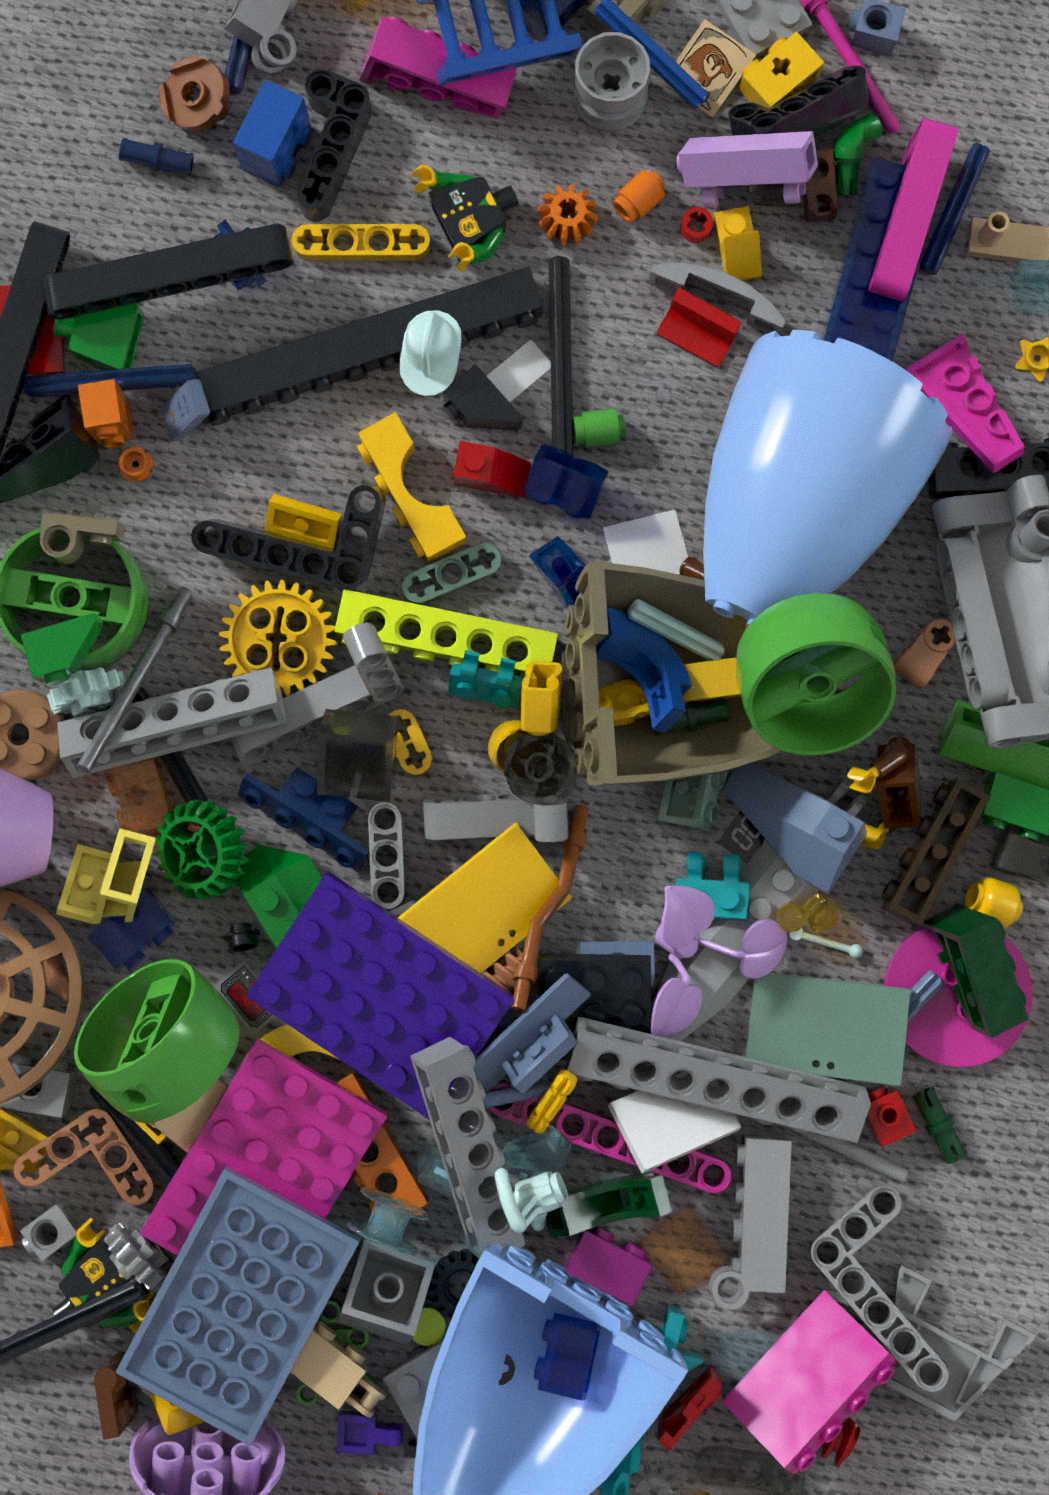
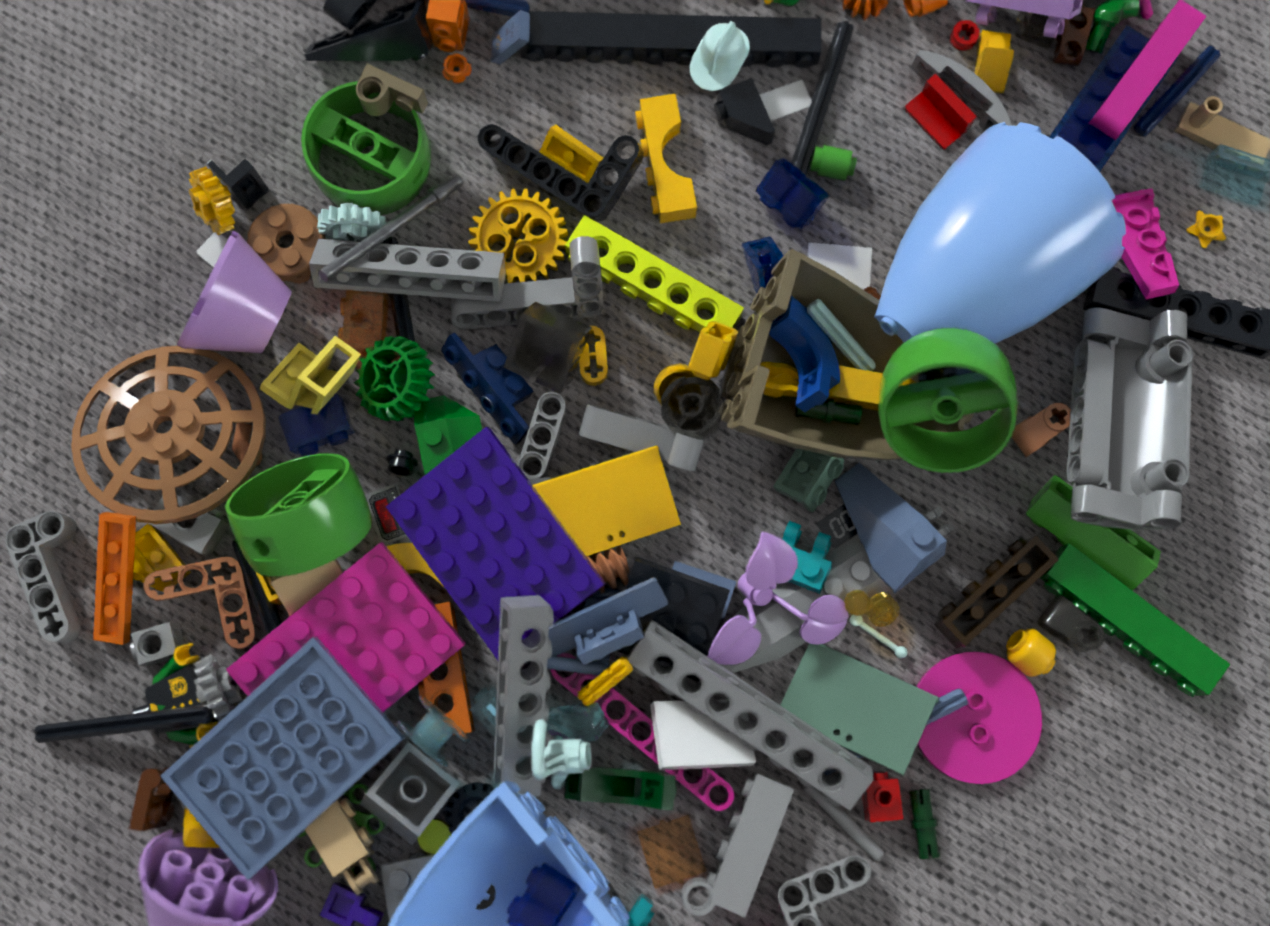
camera: 20 degrees right, 5 degrees down
(60, 648) = (342, 174): green slope -> none
(456, 559) = (697, 241): sand green beam -> none
(485, 685) = (669, 329): teal plate -> none
(490, 469) = (733, 164): red slope -> none
(526, 971) = (623, 565): dark orange bar -> none
(609, 1264) = (604, 839): magenta brick -> none
(897, 788) = (981, 529): reddish brown torso -> none
(982, 968) = (1004, 701): dark green wedge -> none

